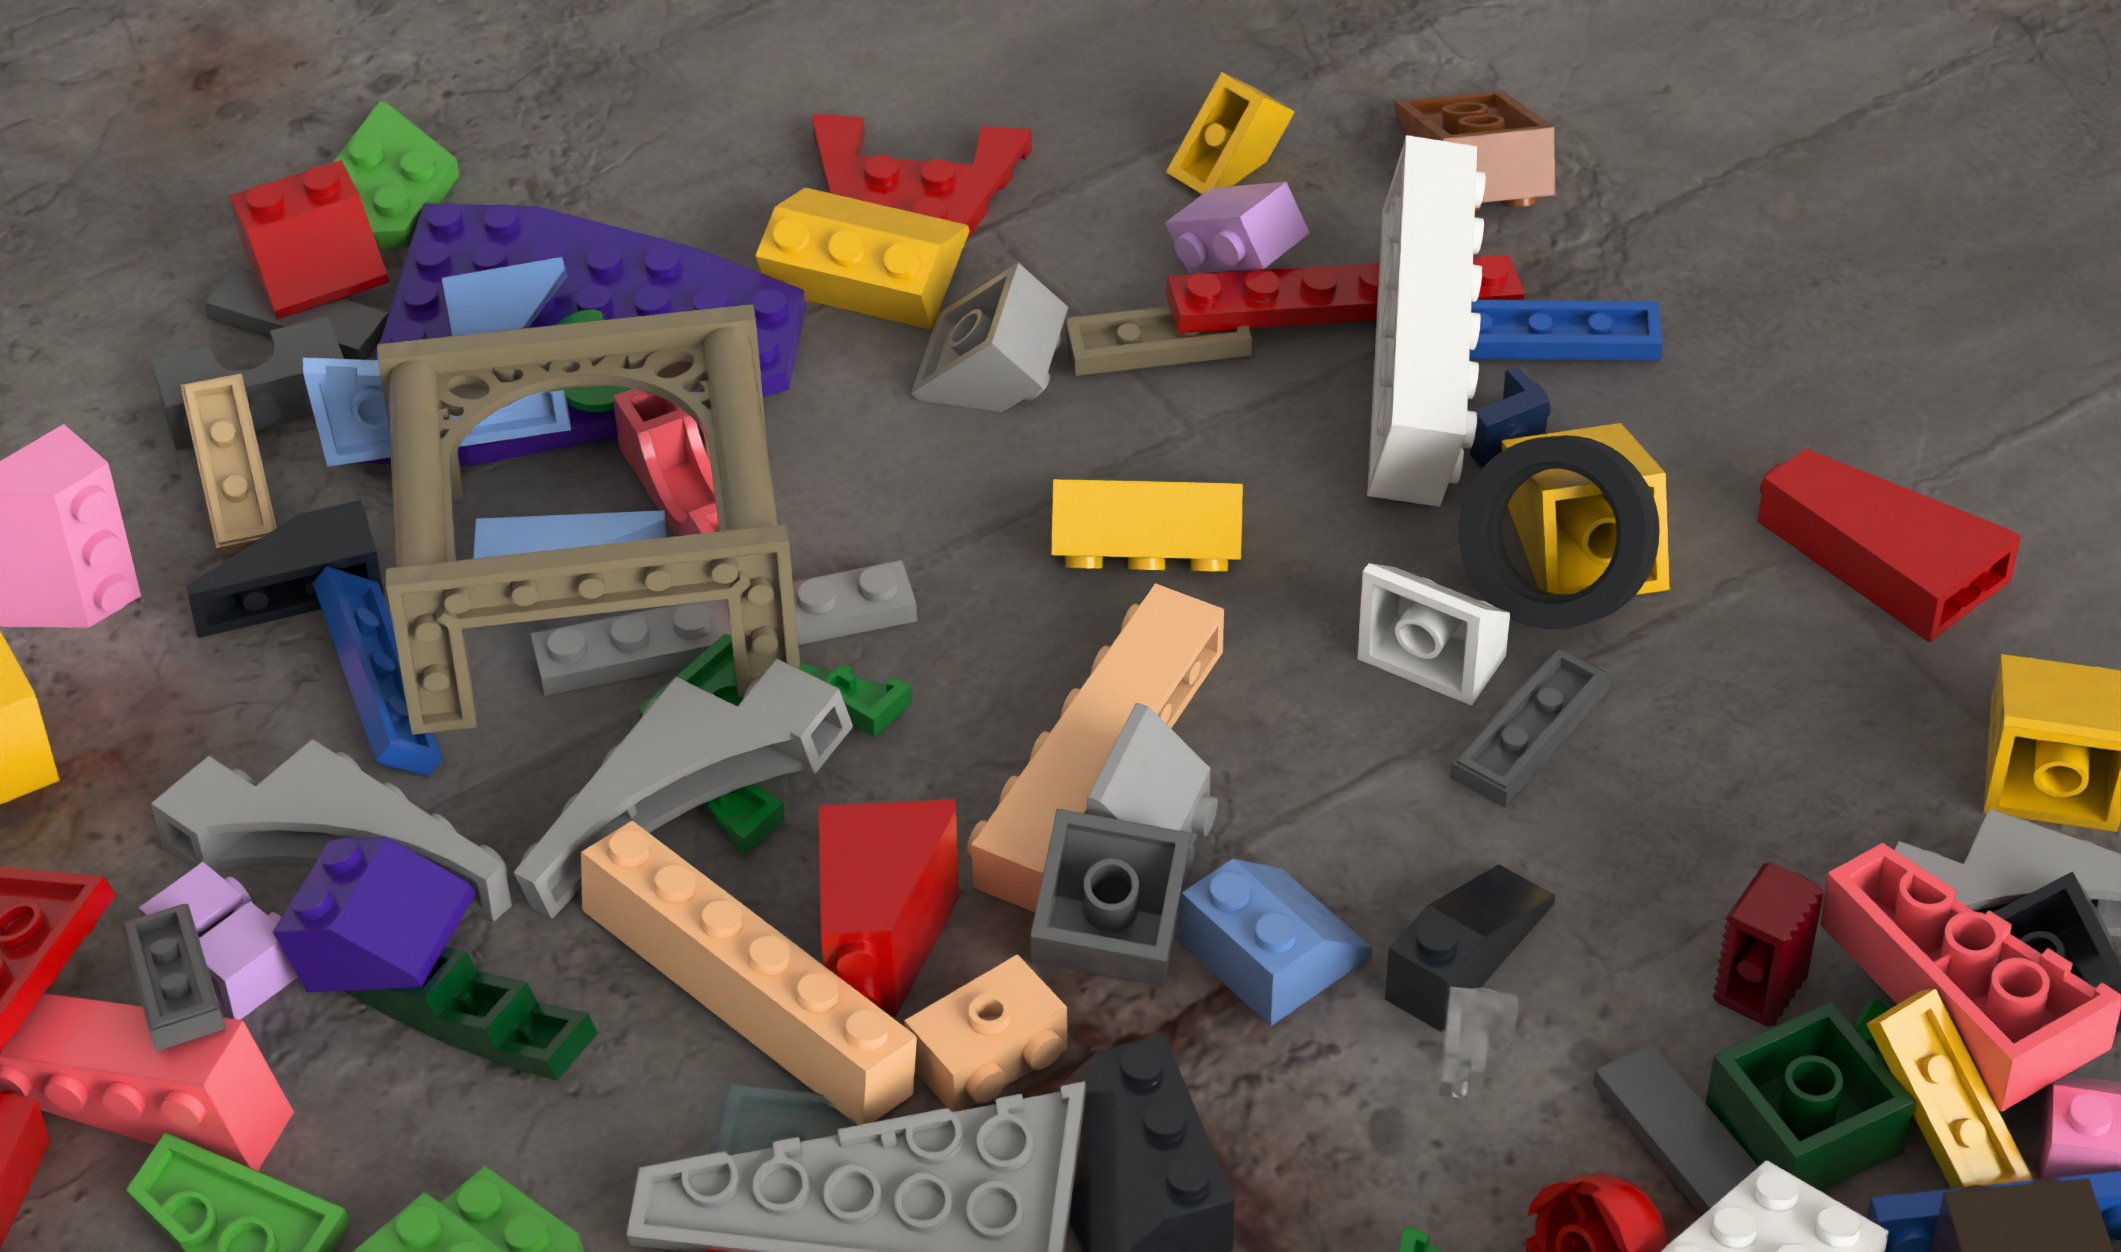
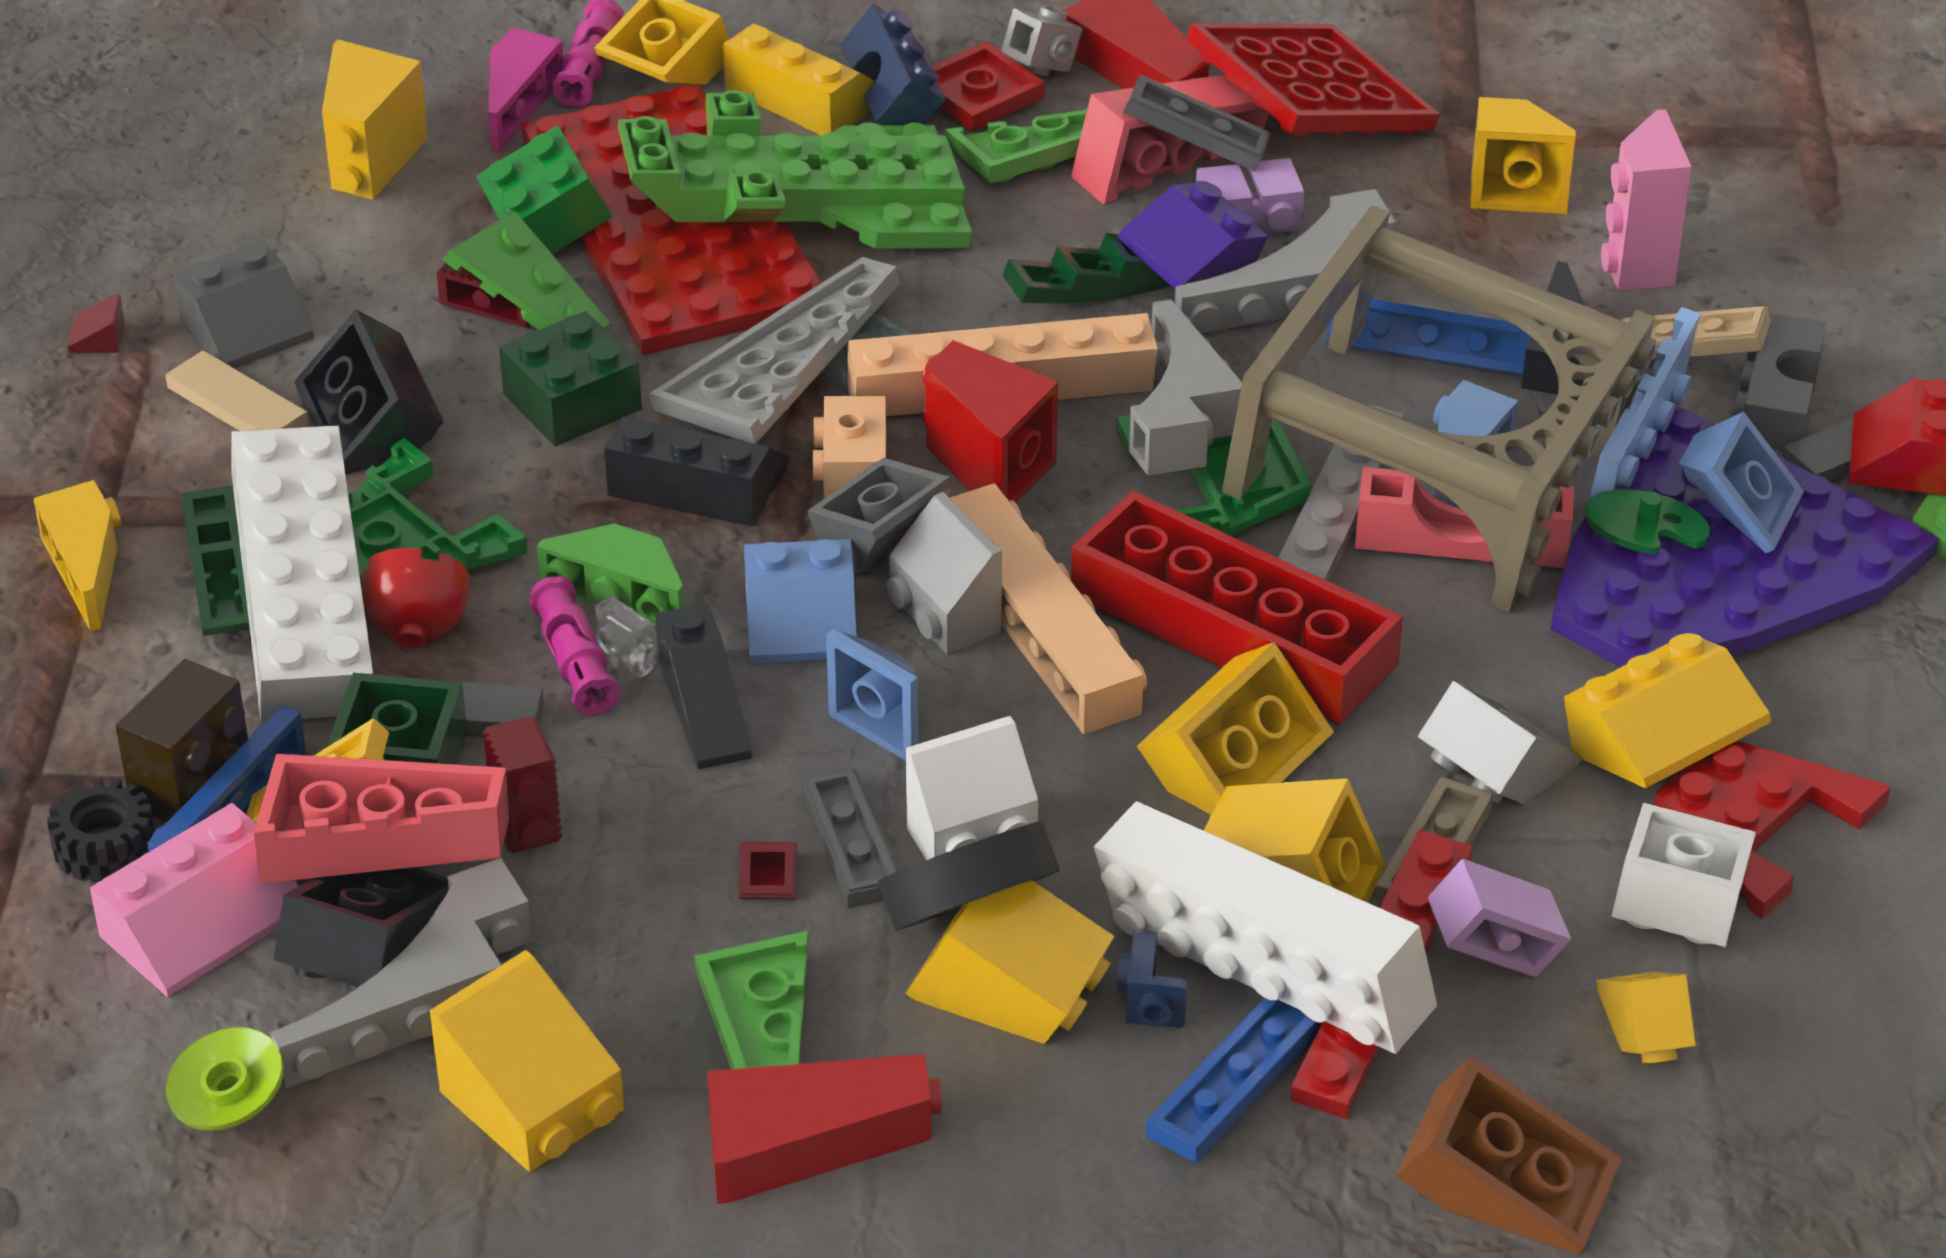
camera: 125 degrees right, 5 degrees down
(980, 589) = (1233, 598): none -> red brick
(1062, 160) = (1683, 875): none -> white slope
(1279, 397) = (1306, 828): none -> yellow slope
(1349, 772) = (872, 692): none -> medium blue slope
(1375, 1115) = (617, 564): none -> bright green slope
(1512, 1083) = (574, 645): none -> dark pink piece
(1630, 759) = (768, 870): none -> dark red slope
(1806, 656) = (757, 999): none -> bright green wing

